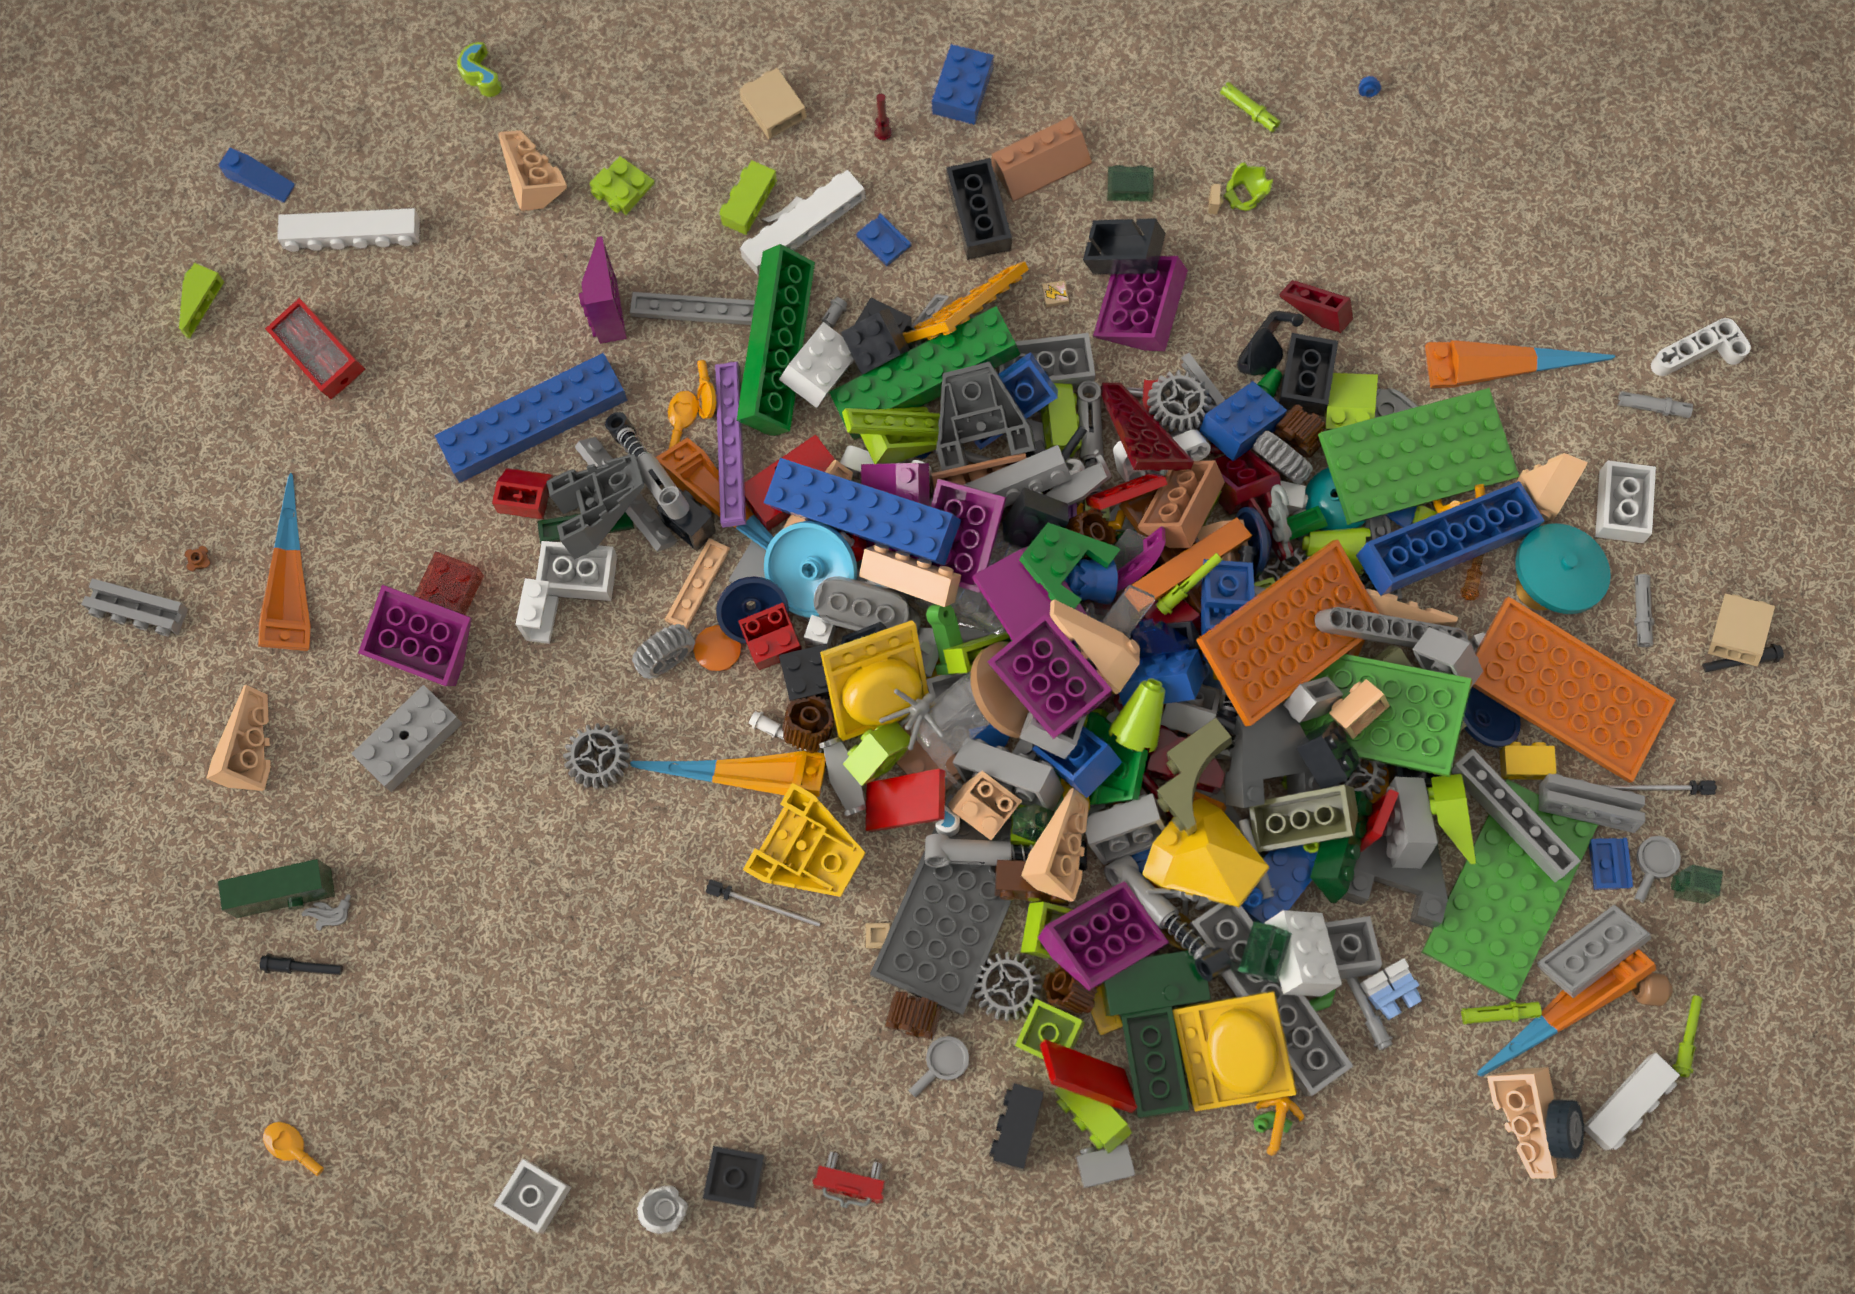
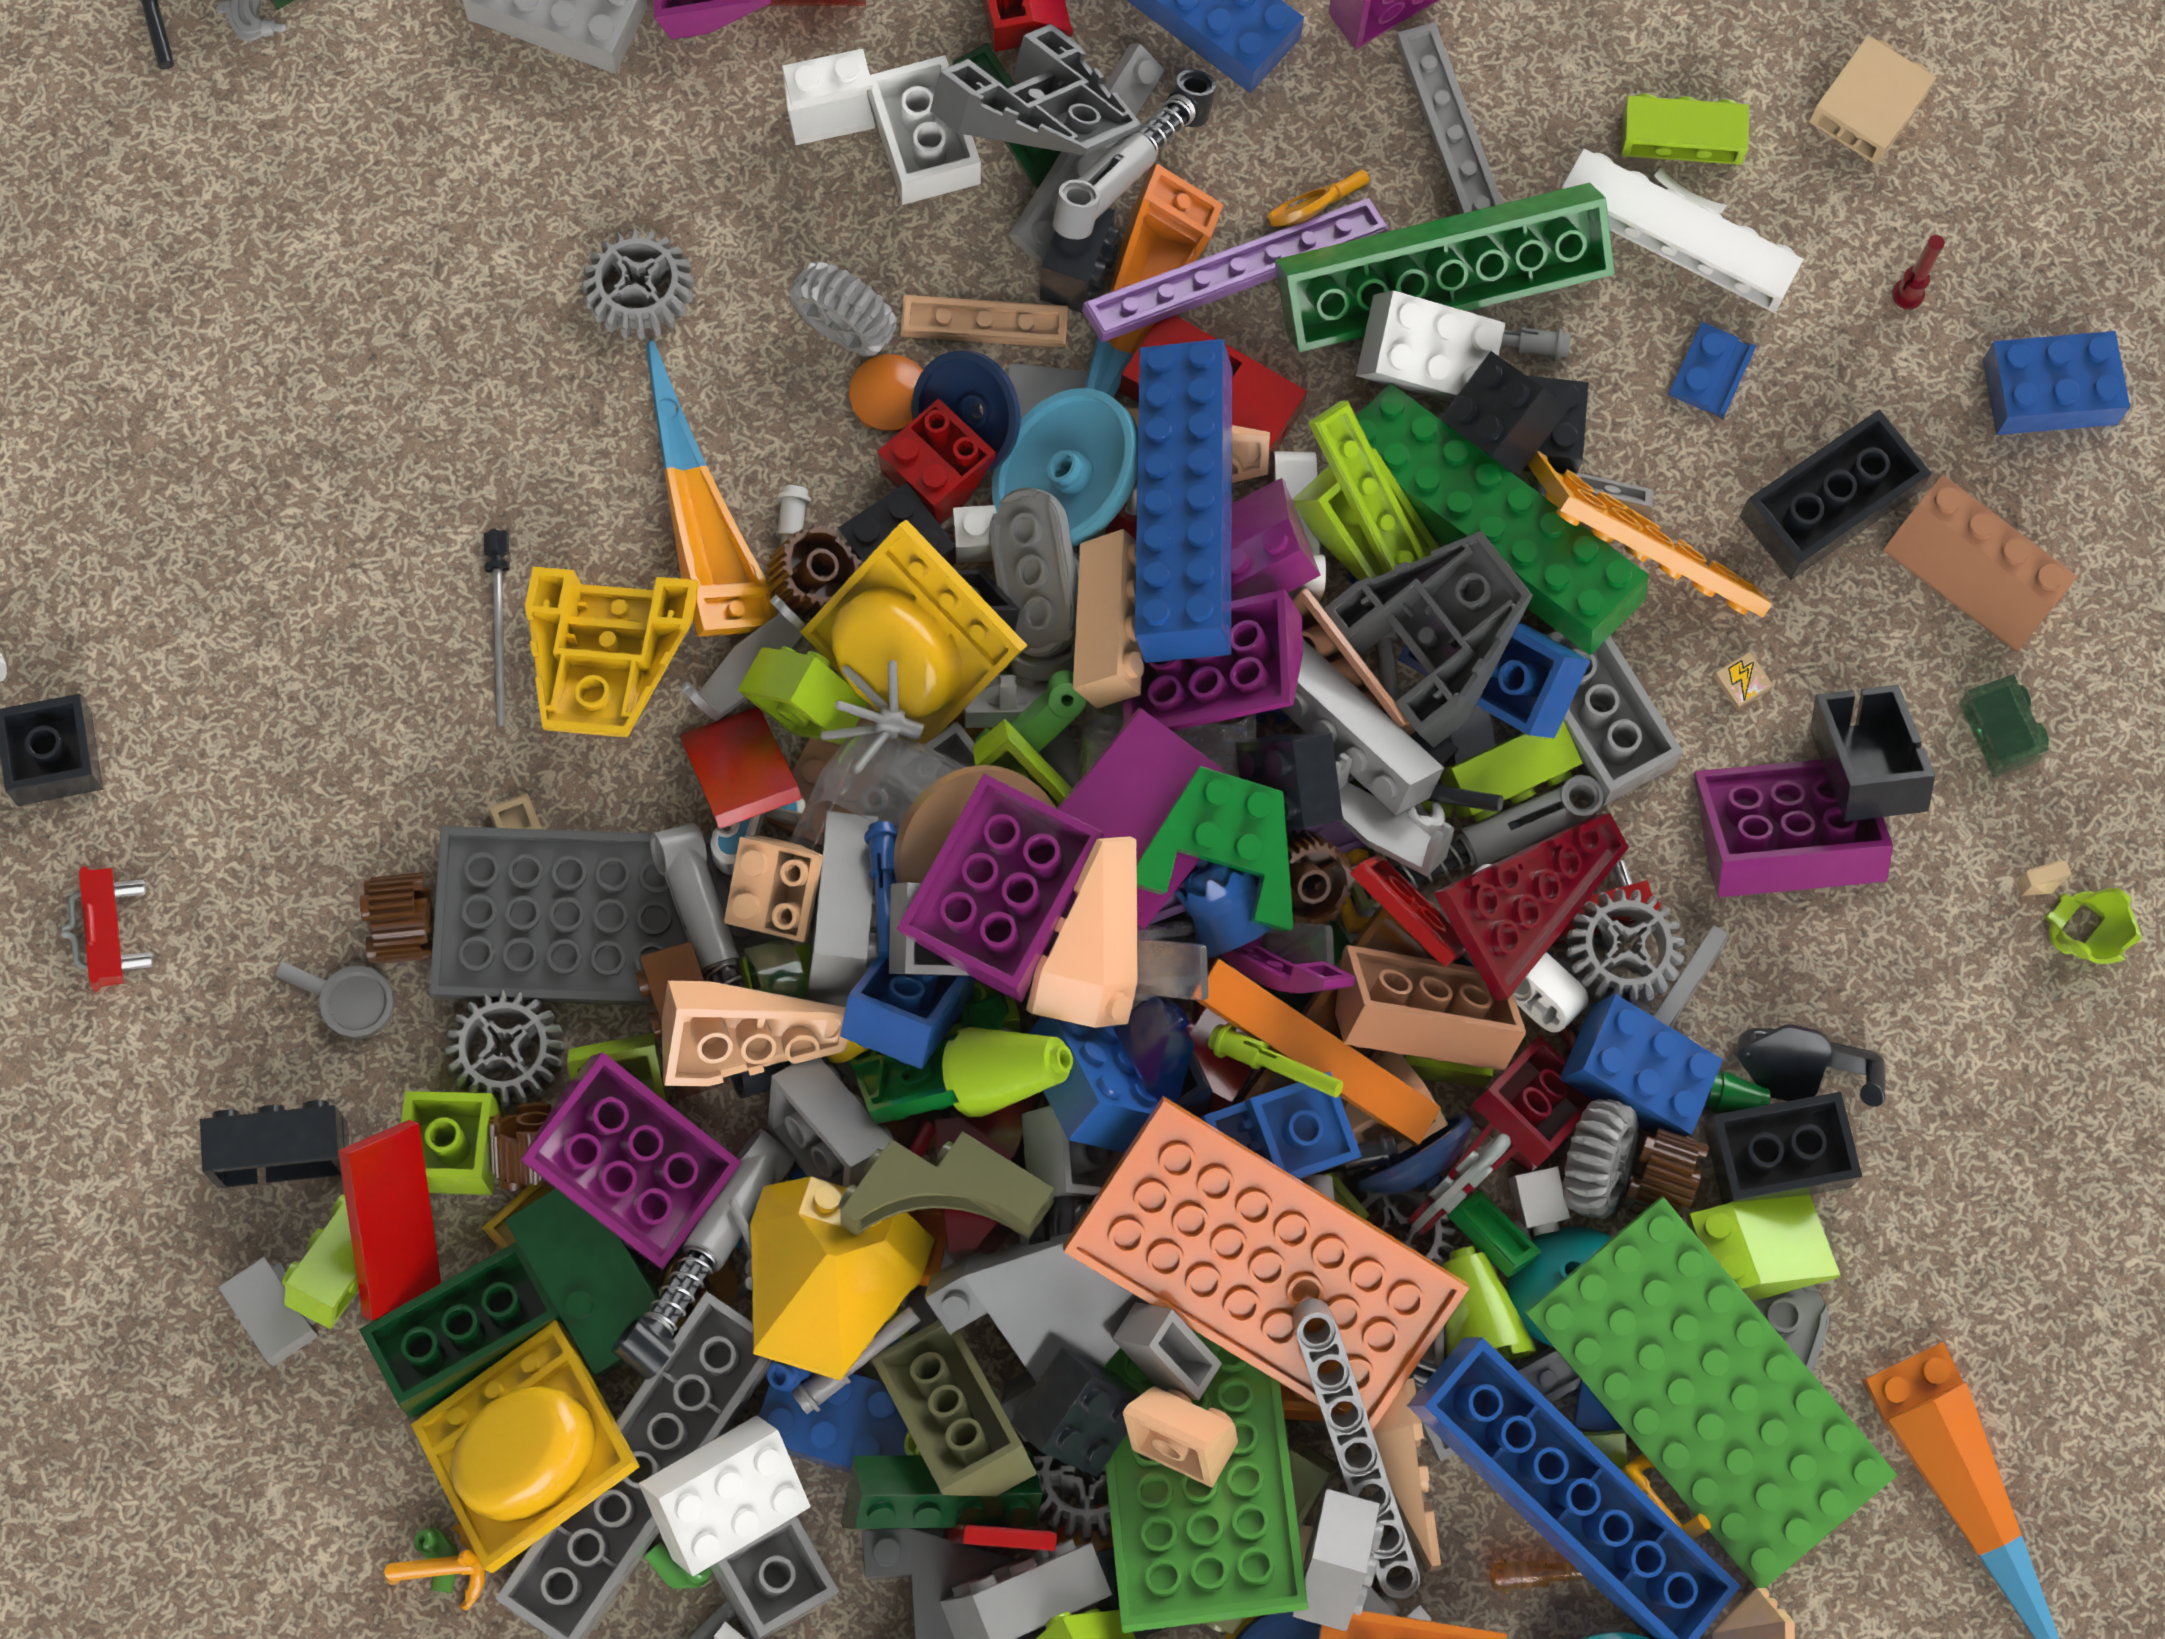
camera: 60 degrees right, 0 degrees up
(681, 414) = (1262, 182): light orange piece -> none
(990, 739) = (881, 841): none -> blue pin
(1265, 952) = (693, 1424): clear green brick -> none
(1319, 305) = (1925, 1127): dark red slope -> none

